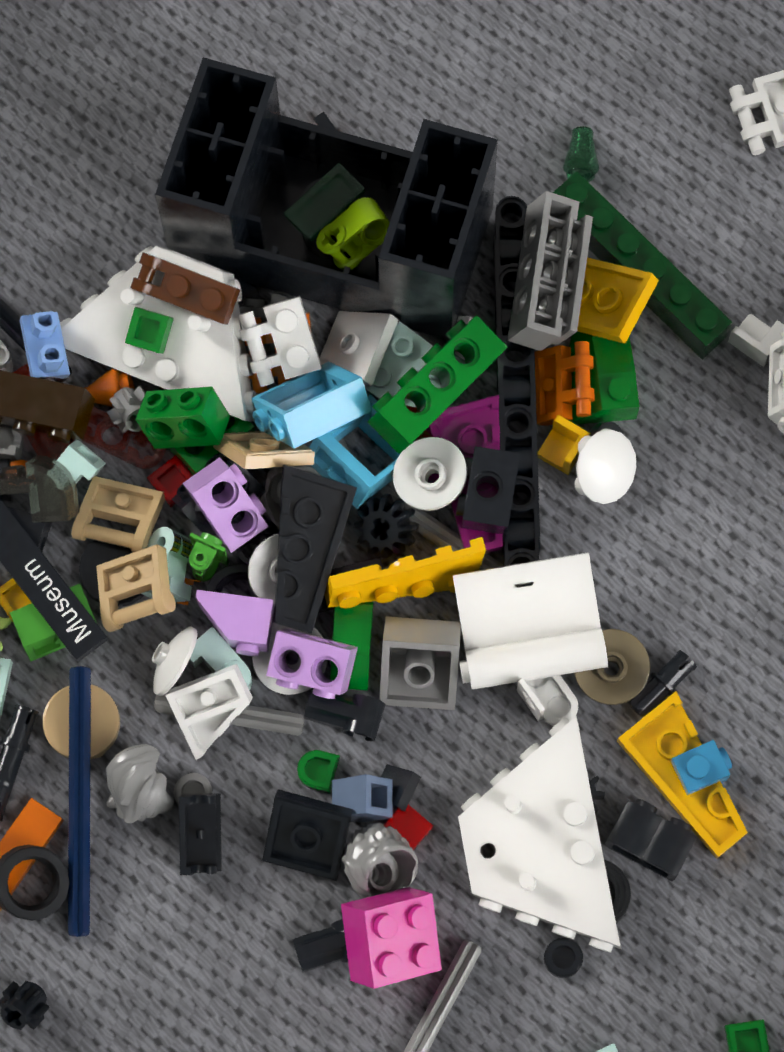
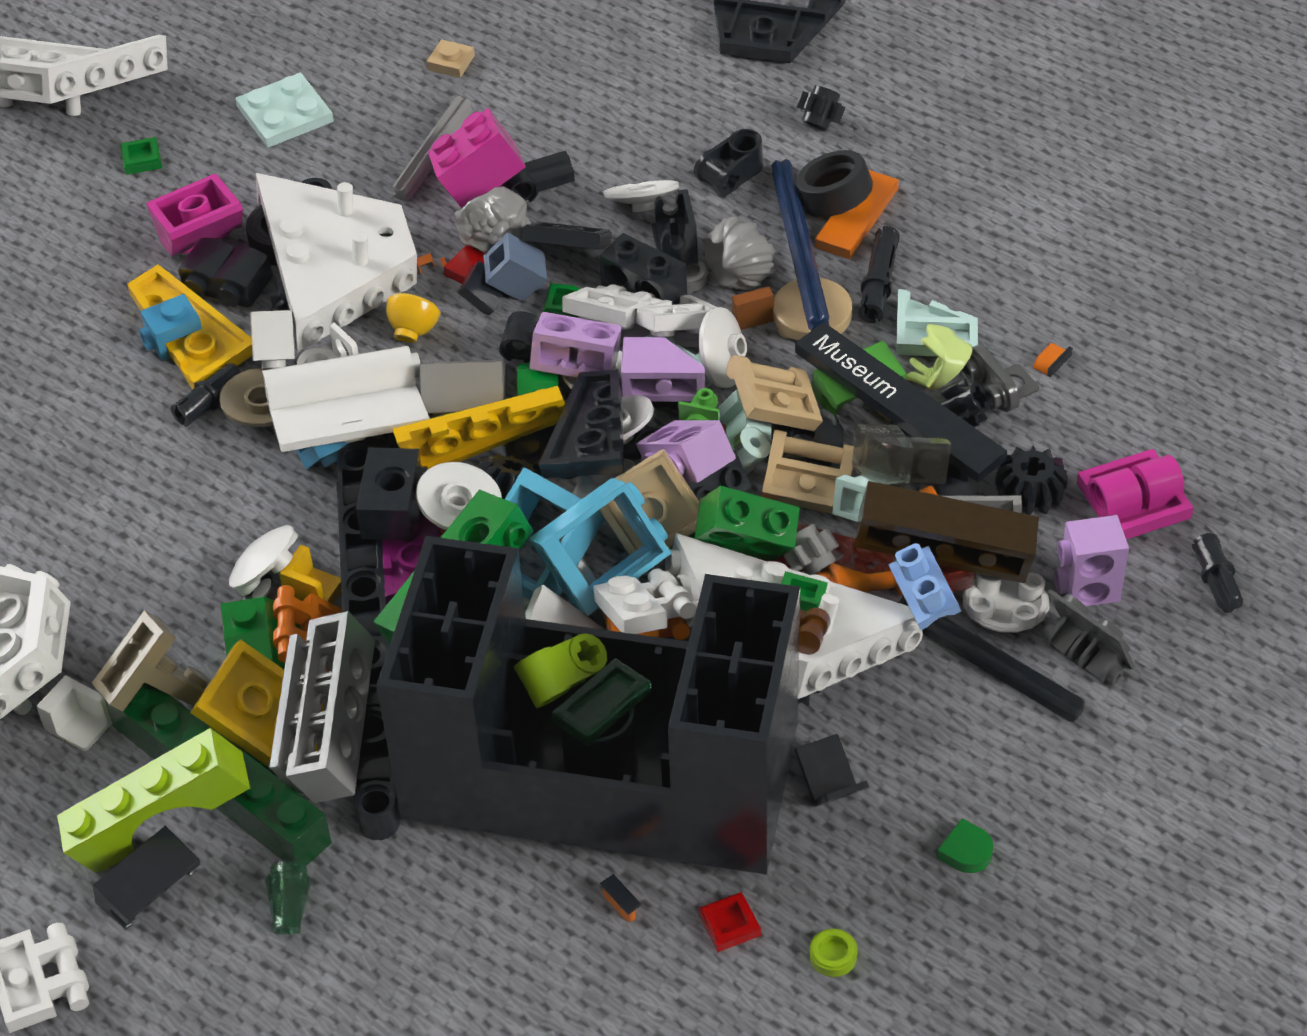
camera: 175 degrees right, 25 degrees down
(58, 147) = (967, 848): none -> green tile
(132, 933) = (733, 161): none -> black piece
(138, 724) = (753, 307): none -> dark orange tile
(145, 208) = (827, 770): none -> black bracket
(175, 74) = (833, 952): none -> lime tile
(223, 917) = (642, 194): none -> white dish
(237, 777) = (644, 269): none -> black brick
(277, 729) = (607, 304): none -> white plate
(449, 843) = (427, 259): none -> orange piece
(466, 757) = (411, 316): none -> yellow brick
(600, 720) = (272, 337): none -> white brick
(653, 209) = (194, 774): none -> lime arch
(679, 898) = (195, 212): none -> dark pink slope
(691, 179) = (144, 876): none -> black hinge
(691, 331) = (142, 660): none -> dark tan bracket

